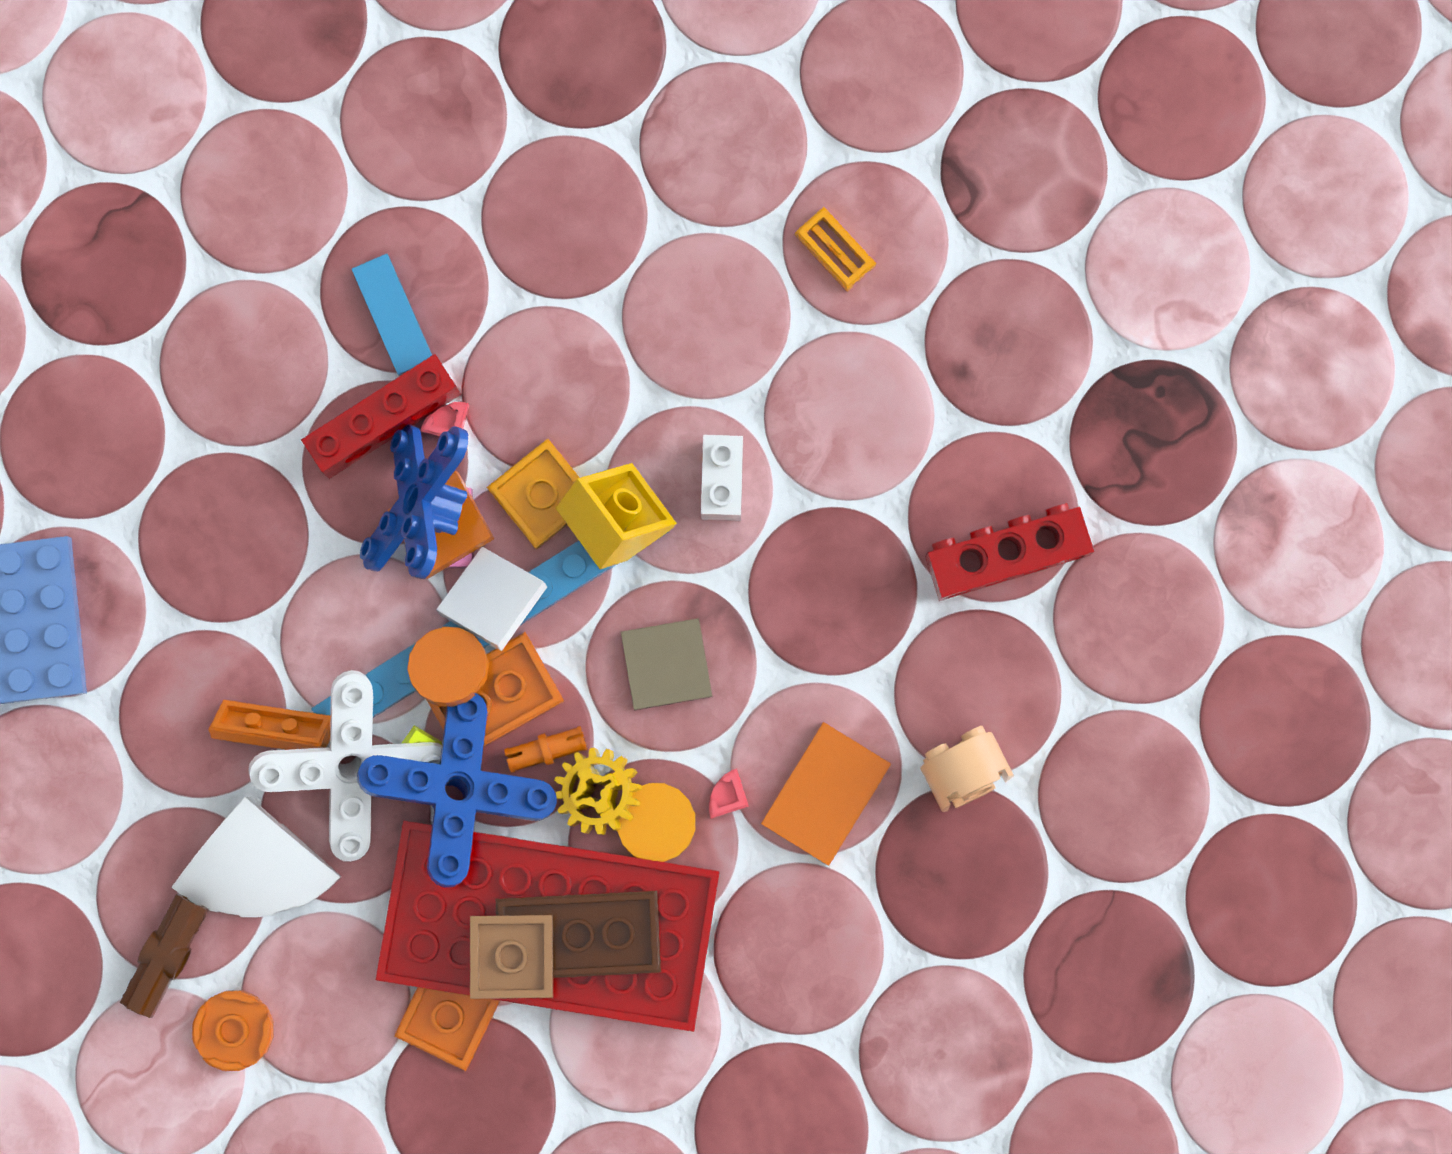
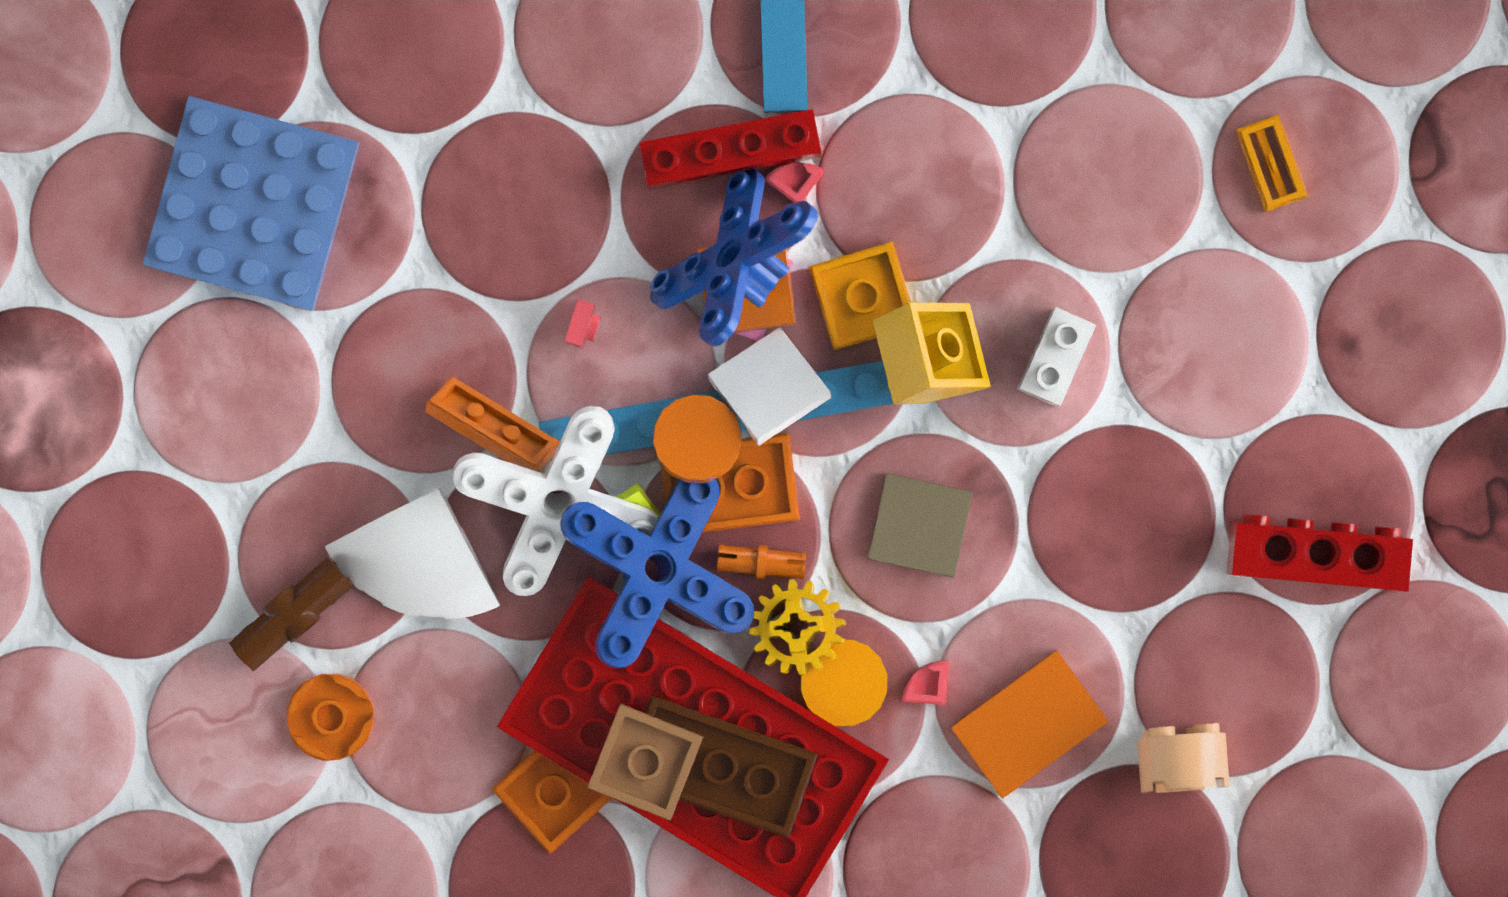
camera: 20 degrees right, 5 degrees up
(315, 611) = (583, 324): none -> coral plate

